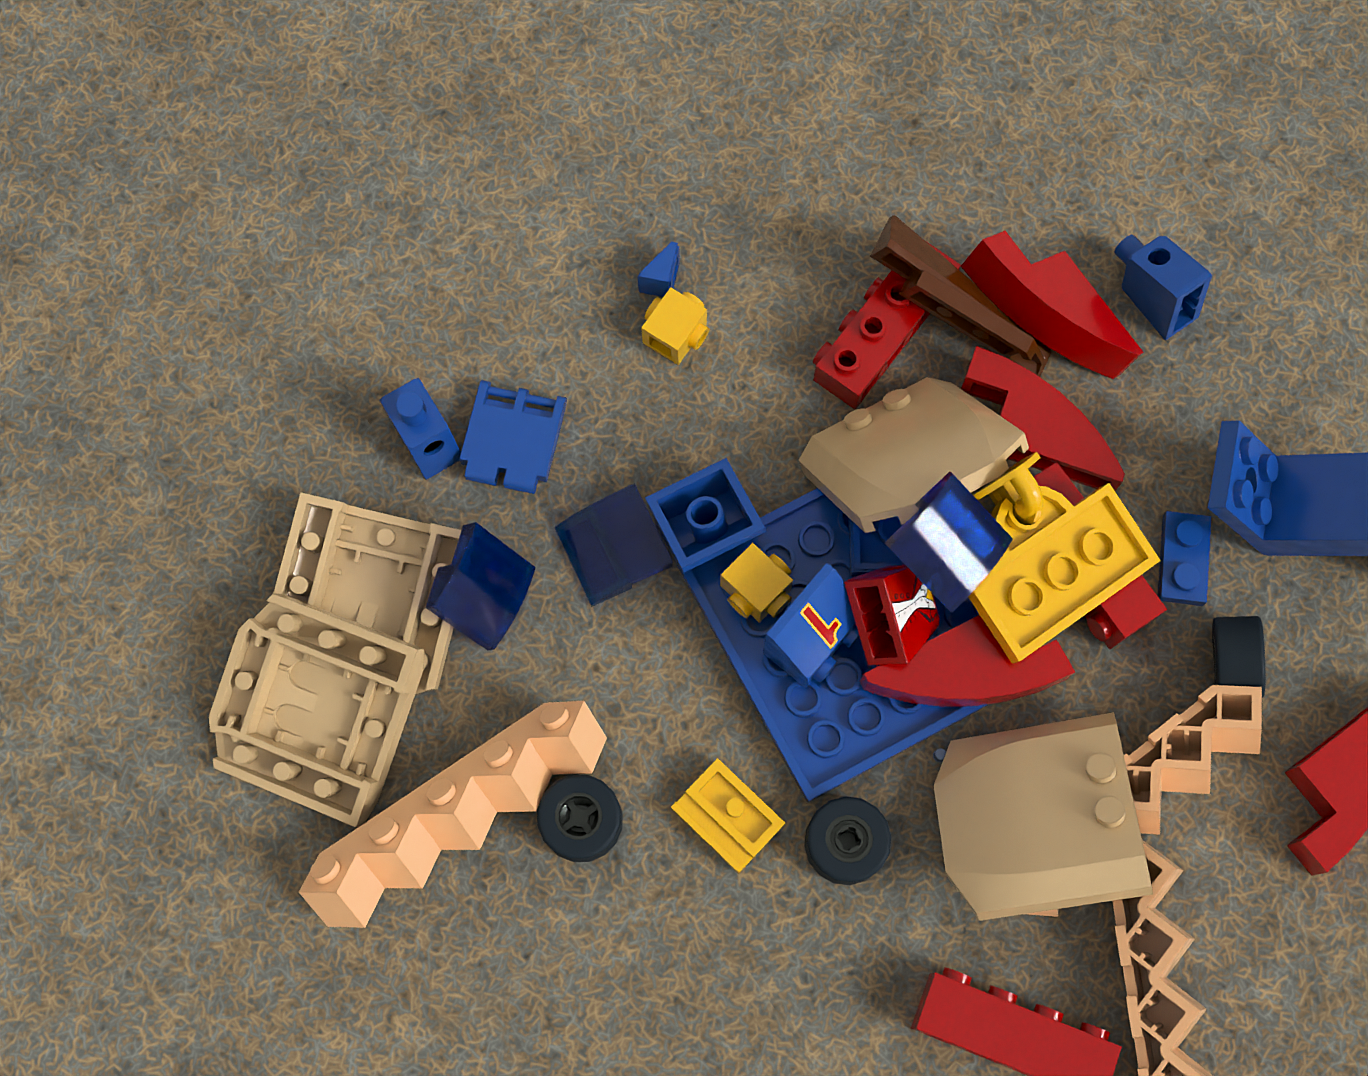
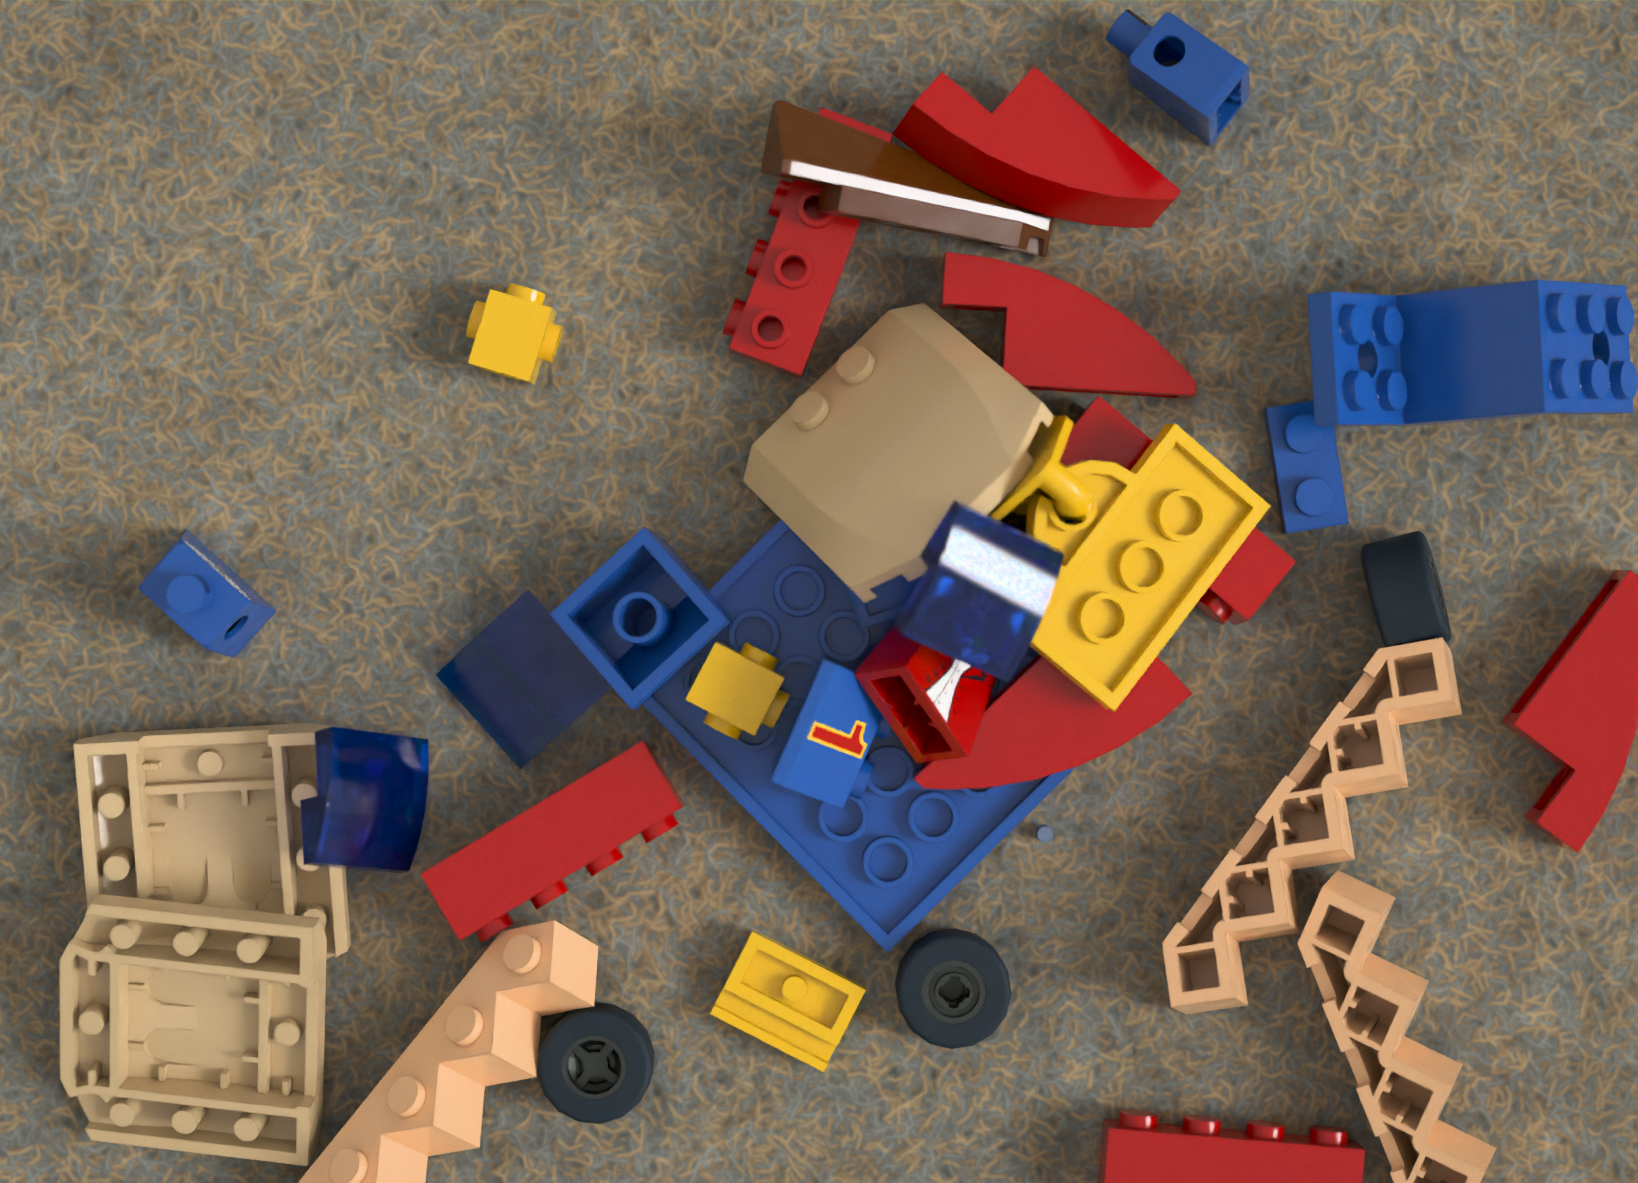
camera: 15 degrees left, 15 degrees up
(511, 438) = (335, 567): blue plate -> none
(600, 654) = (553, 840): none -> red brick
(660, 272) = (471, 260): blue slope -> none
(1040, 819) = (1191, 895): tan wedge -> none

